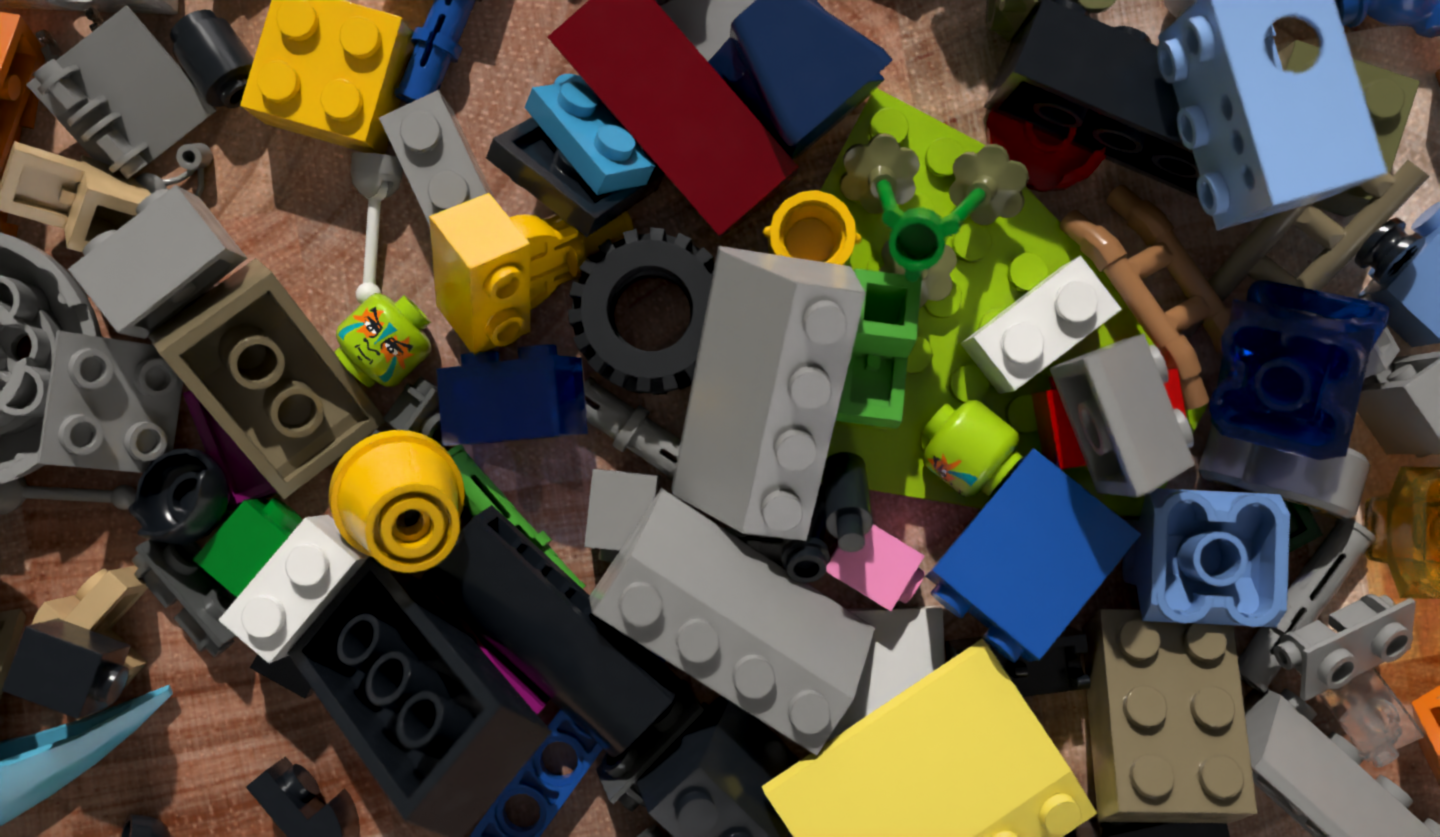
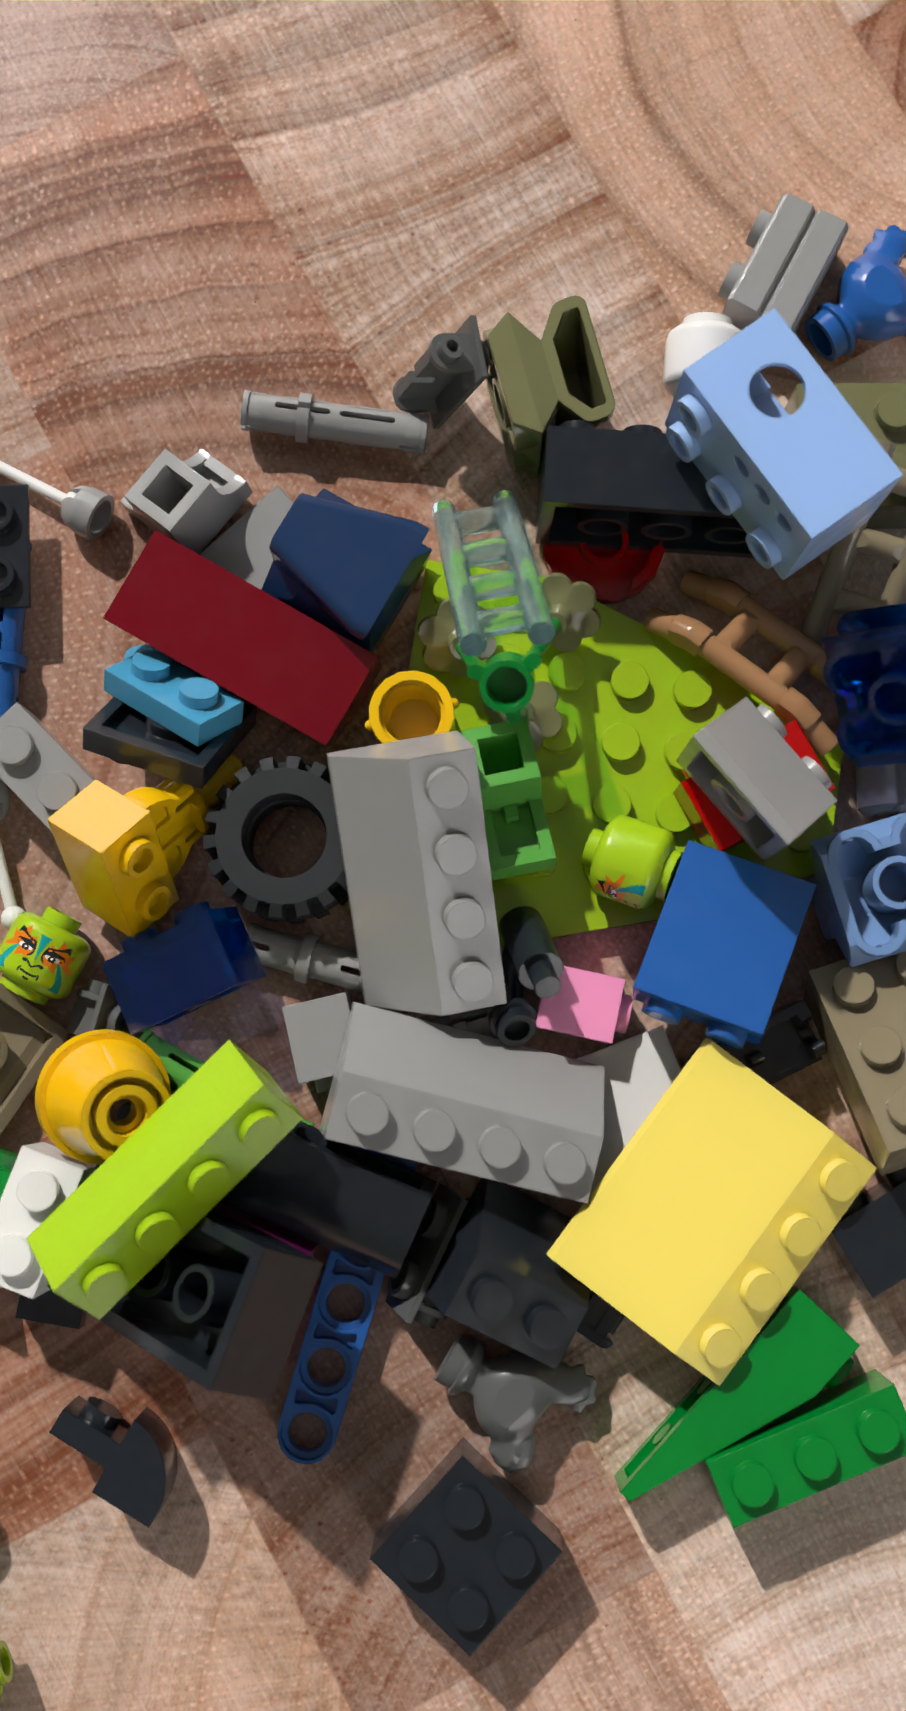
camera: 10 degrees left, 5 degrees down
(426, 602) = (162, 1180): none -> lime brick
(906, 133) = (466, 590): none -> clear light blue bar
(1041, 326) = (655, 725): white brick -> none

